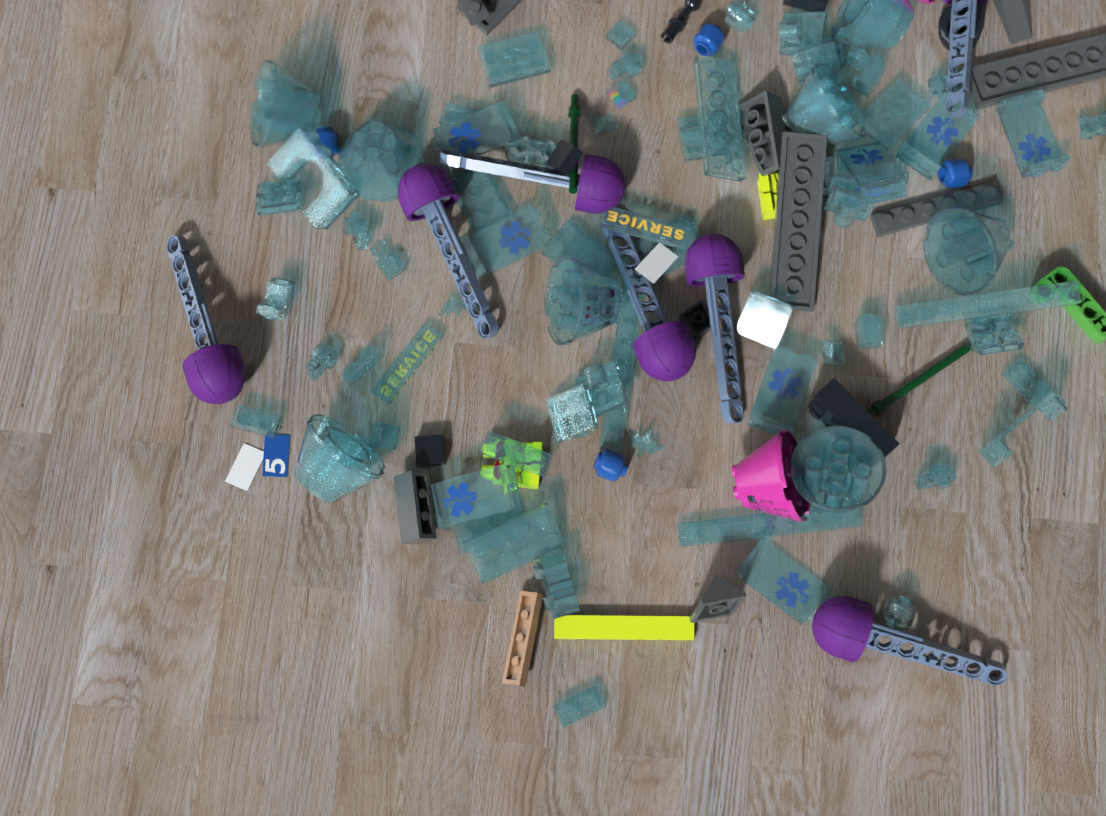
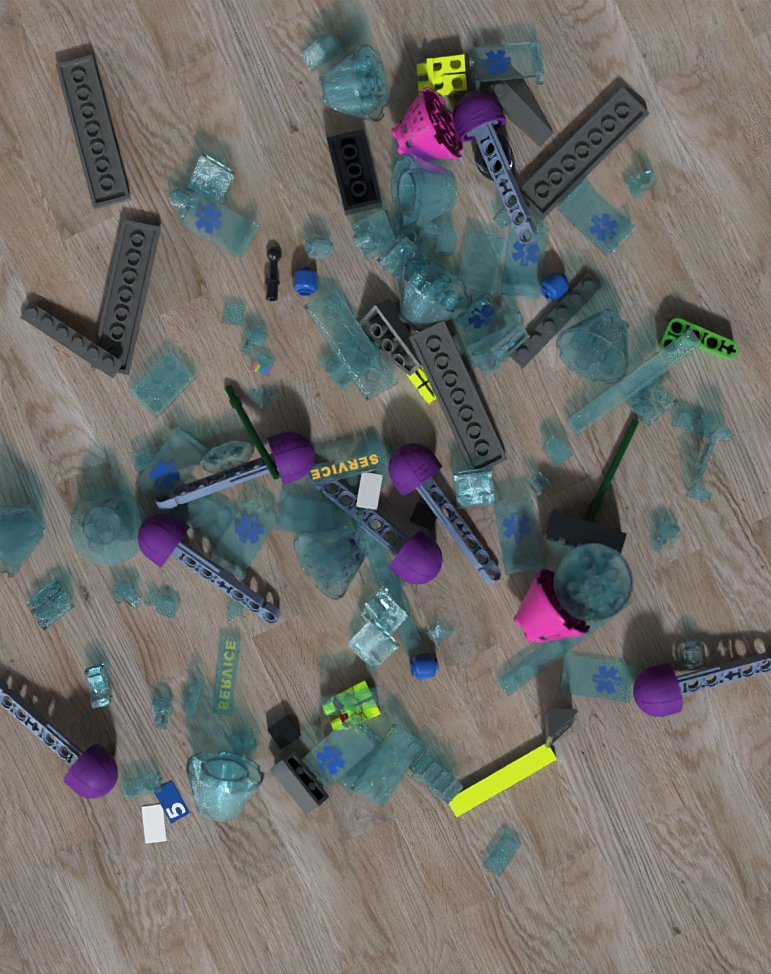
camera: 30 degrees left, 10 degrees up
(329, 139) = (58, 539): blue head -> none
(337, 189) = (93, 574): clear light blue arch -> none
(522, 638) = (434, 831): medium nougat plate -> none
(564, 157) = (254, 452): black piece -> none

